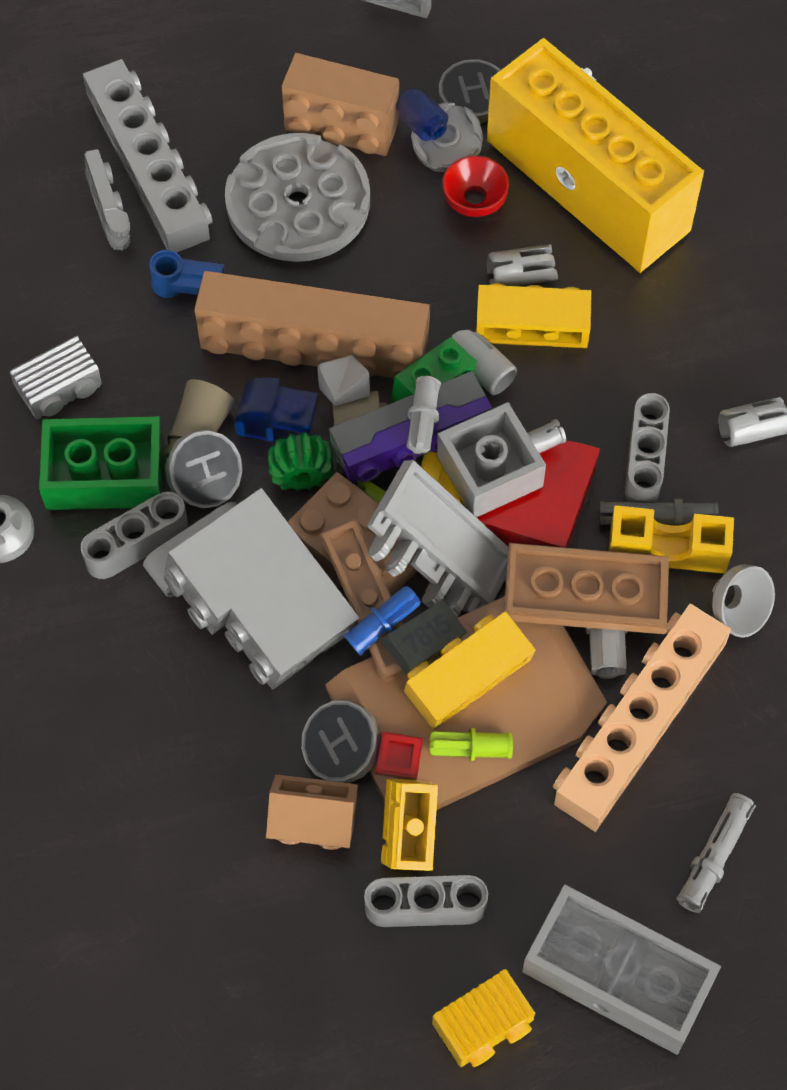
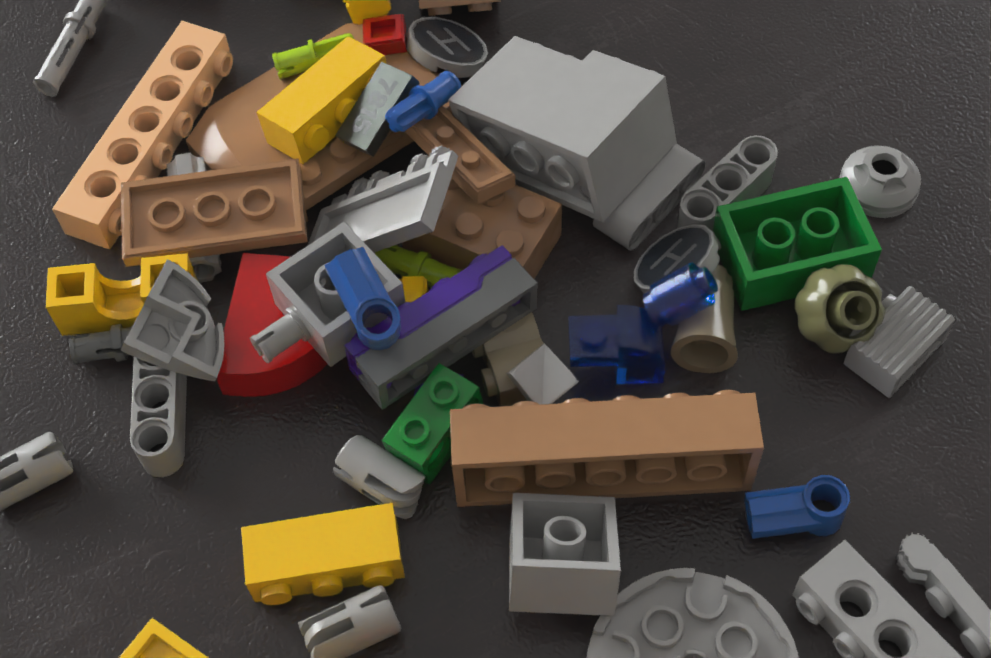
camera: 170 degrees right, 5 degrees down
(93, 392) = (836, 304): none -> olive plant
(216, 414) = (680, 294): none -> clear blue brick
(300, 462) = (570, 289): green gear -> none
(364, 259) = (563, 554): none -> light grey brick
(423, 414) = (425, 305): light grey axle -> none
(469, 407) = (363, 296): none -> blue piece
(625, 478) = (177, 327): none -> light grey brick
(751, 602) = (49, 249): light grey piece -> none

